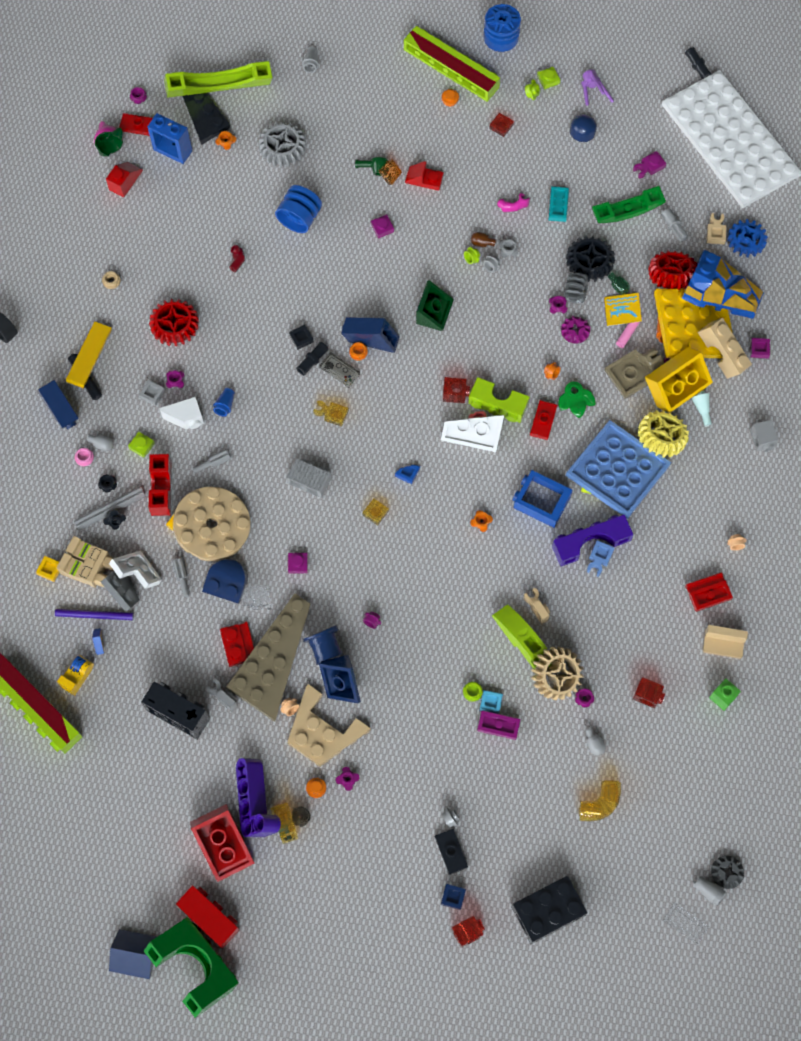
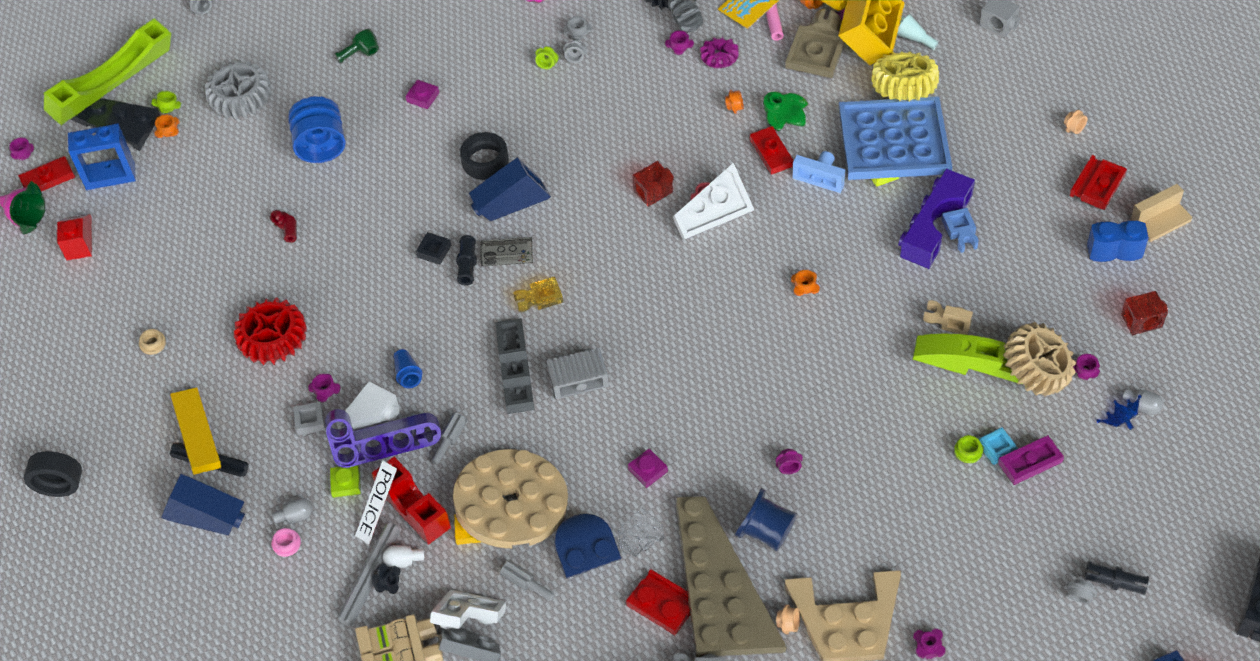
camera: 35 degrees left, 15 degrees down
(107, 478) = (340, 542): black plate -> none
(132, 512) = (402, 556): none -> white cylinder
(140, 472) = (375, 502): none -> white sticker
(173, 436) = (383, 433): none -> dark purple beam
(237, 119) = (166, 101): none -> lime plate
(281, 446) = (514, 366): none -> dark grey slope
(339, 679) = (822, 539): dark blue slope -> none
(358, 351) = (510, 219): orange plate -> none
(375, 511) = (684, 354): clear yellow plate -> none
(383, 285) = (479, 142): none -> black tyre
(390, 172) = (384, 40): clear orange tile -> none
(408, 473) = (681, 295): blue tile -> none
(423, 177) = (421, 25): red slope -> none
(433, 307) = (552, 127): dark green slope -> none
(451, 851) = (1117, 628): black plate -> none
(476, 826) = (1116, 578): none -> black pin
(481, 240) = (543, 37): reddish brown cylinder -> none
(512, 408) = (692, 169): lime arch -> none
(534, 512) = (852, 234): blue window -> none
(555, 456) = (819, 172): none -> light blue tile
(575, 740) = (1122, 414): none -> clear blue piece
(604, 805) = (1220, 451): clear yellow cylinder -> none
(682, 640) = (1120, 241): none -> blue brick
(724, 694) = (1217, 258): bright green brick -> none

